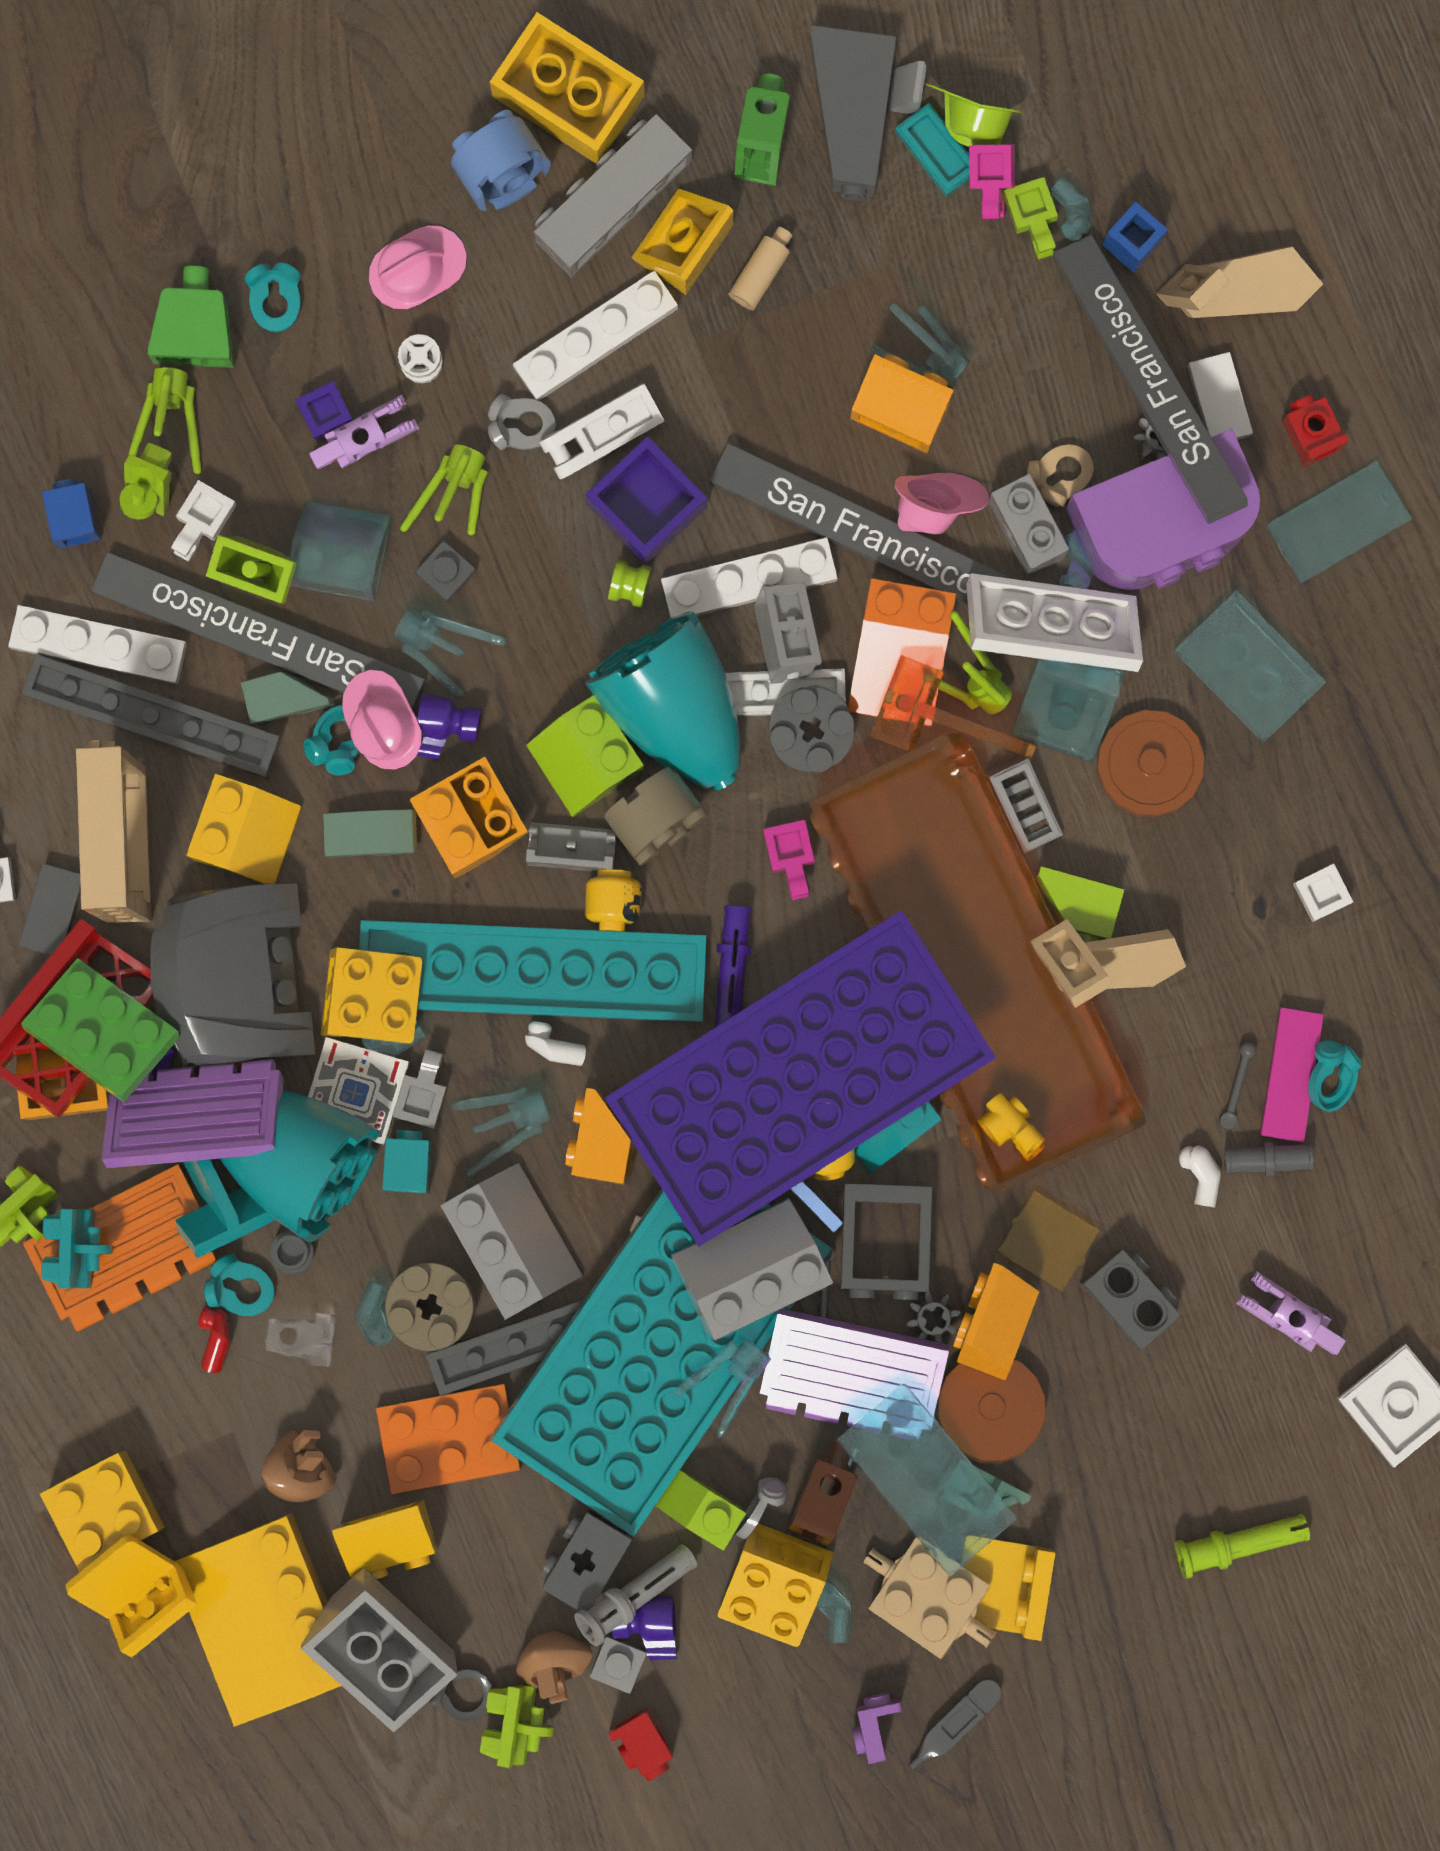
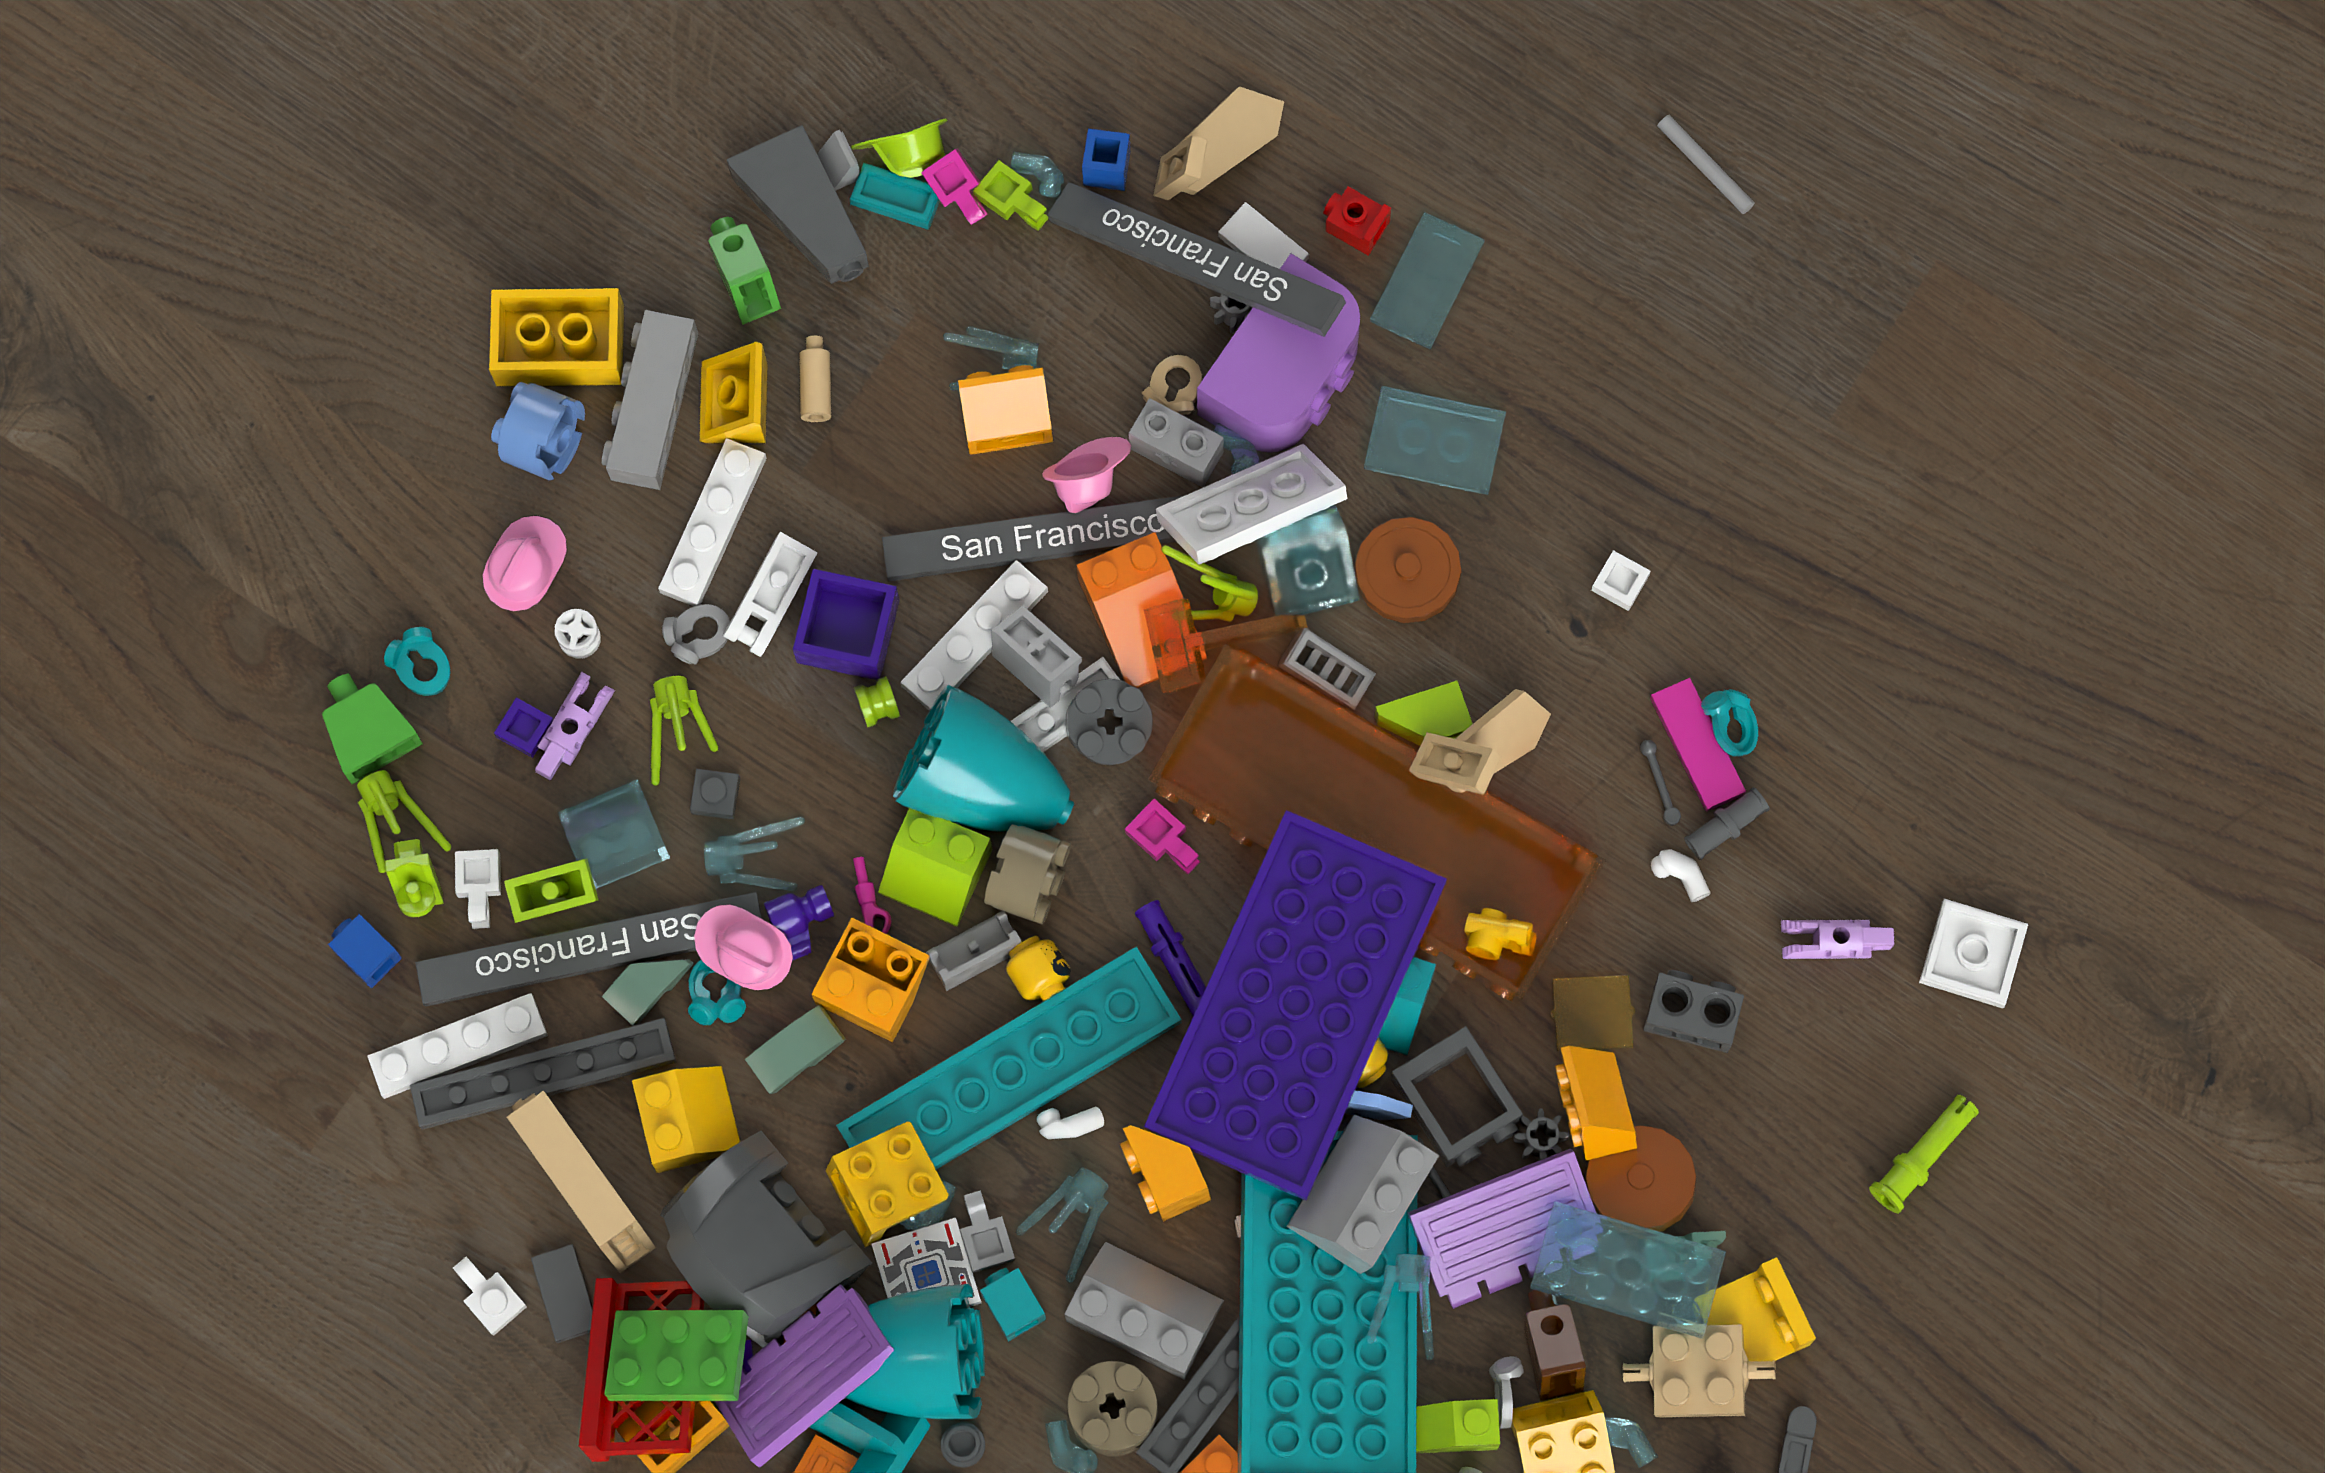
camera: 30 degrees left, 10 degrees down
(512, 746) = (866, 897): none -> dark pink hand

